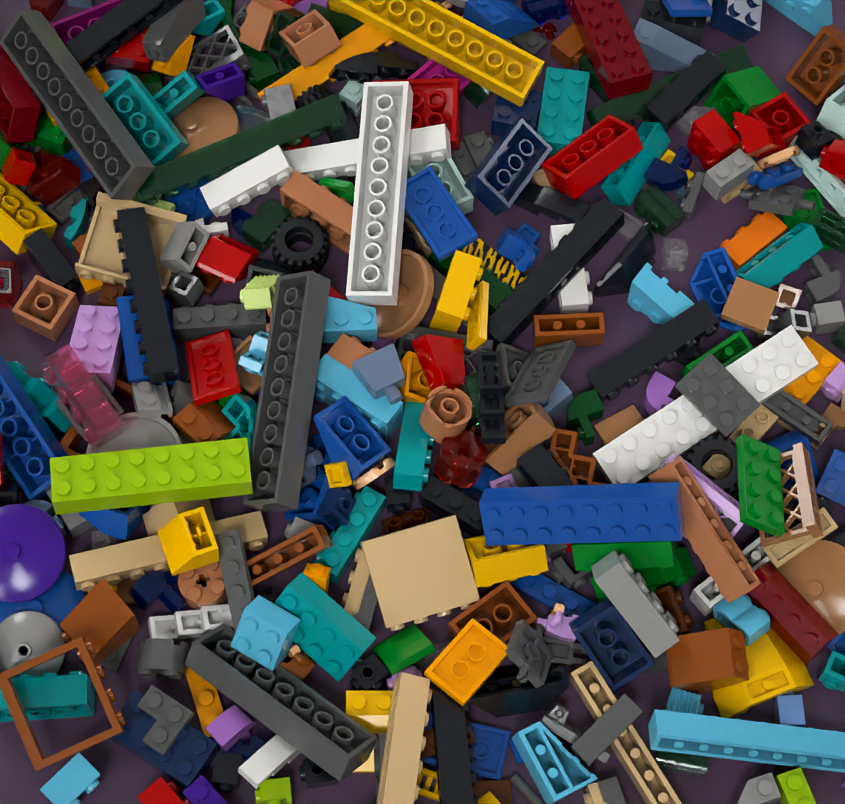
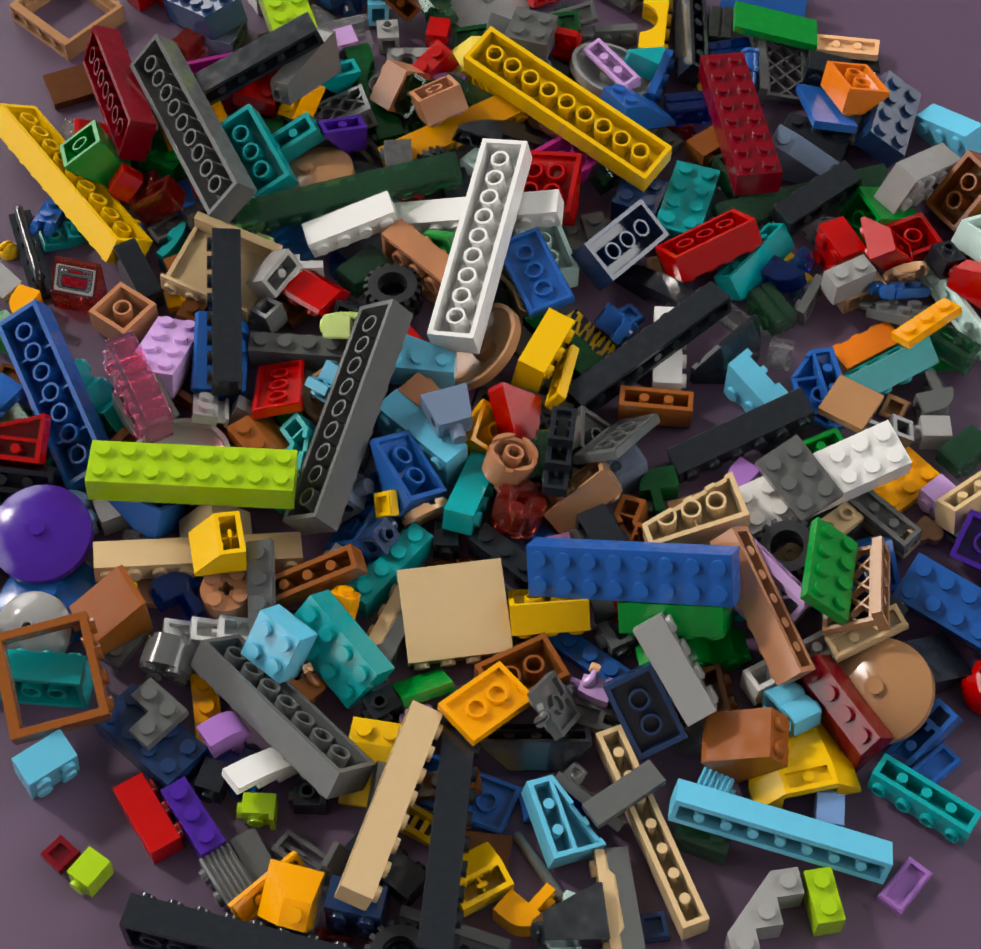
camera: 10 degrees right, 10 degrees down
(633, 448) = (700, 516): none -> tan wedge
(777, 58) = (916, 178): none -> light grey brick
(808, 211) = (926, 323): none -> light orange plate

